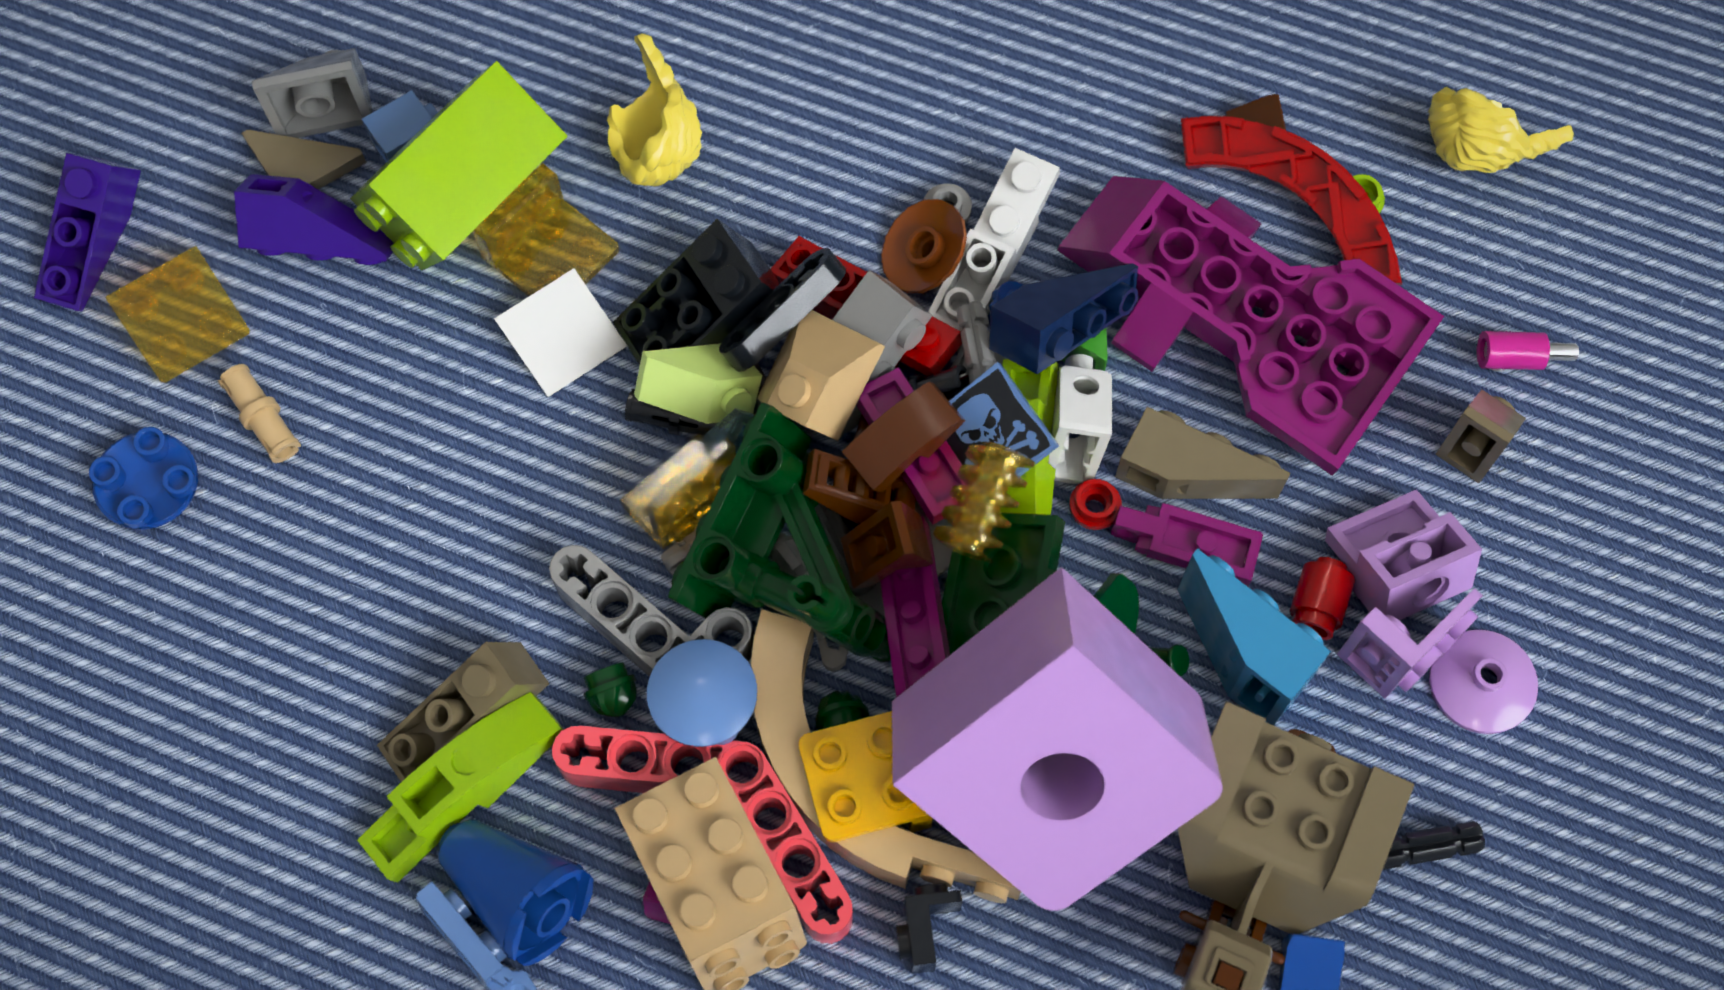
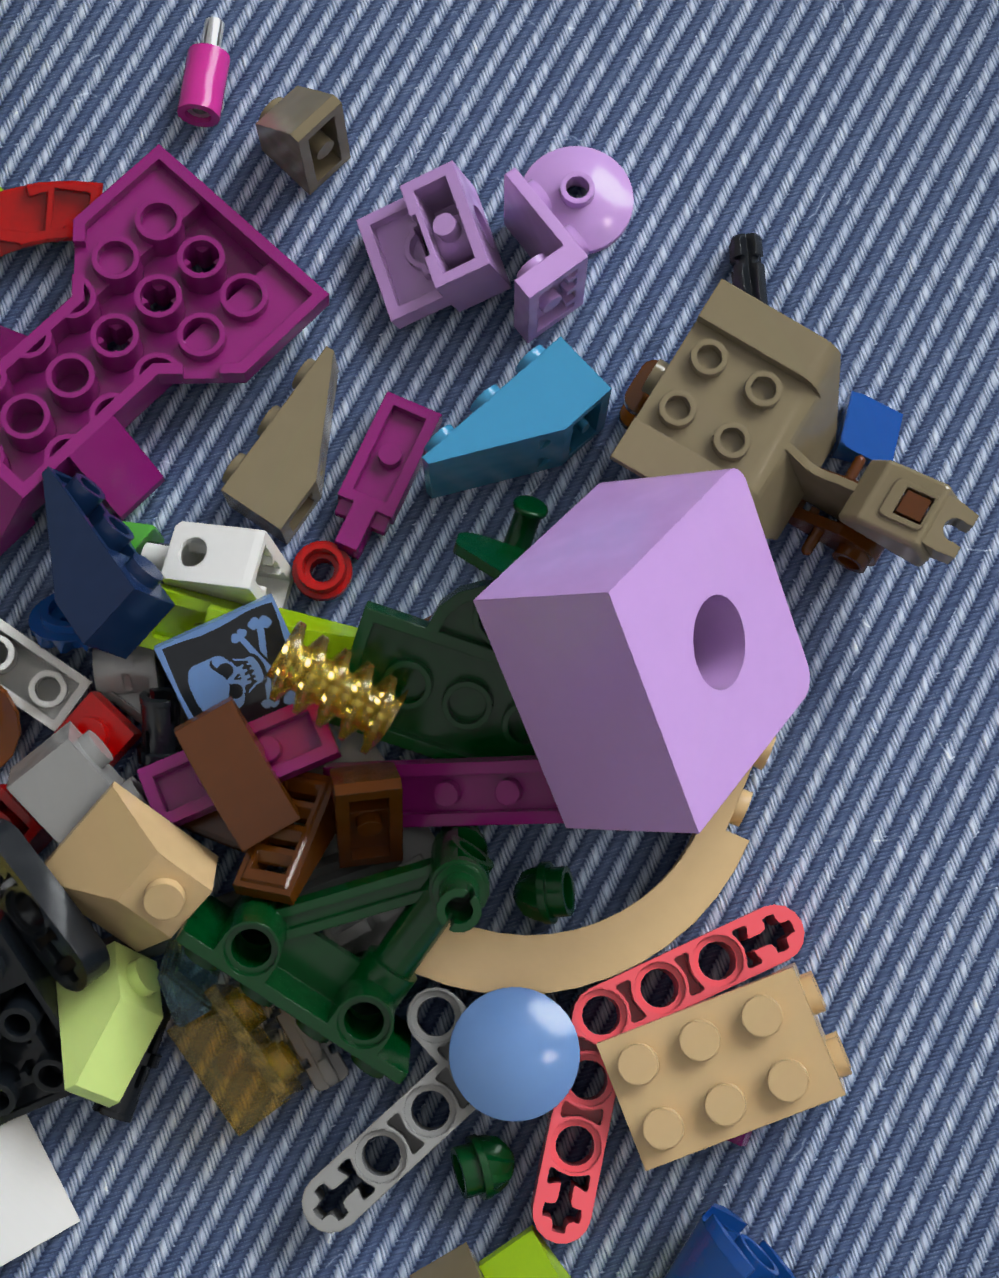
camera: 85 degrees left, 10 degrees up
(853, 780) = (629, 883): yellow bracket -> none
(916, 936) = (803, 837): black bracket -> none
(975, 338) = (111, 673): light grey axle -> none
(1322, 596) = (469, 343): red brick -> none

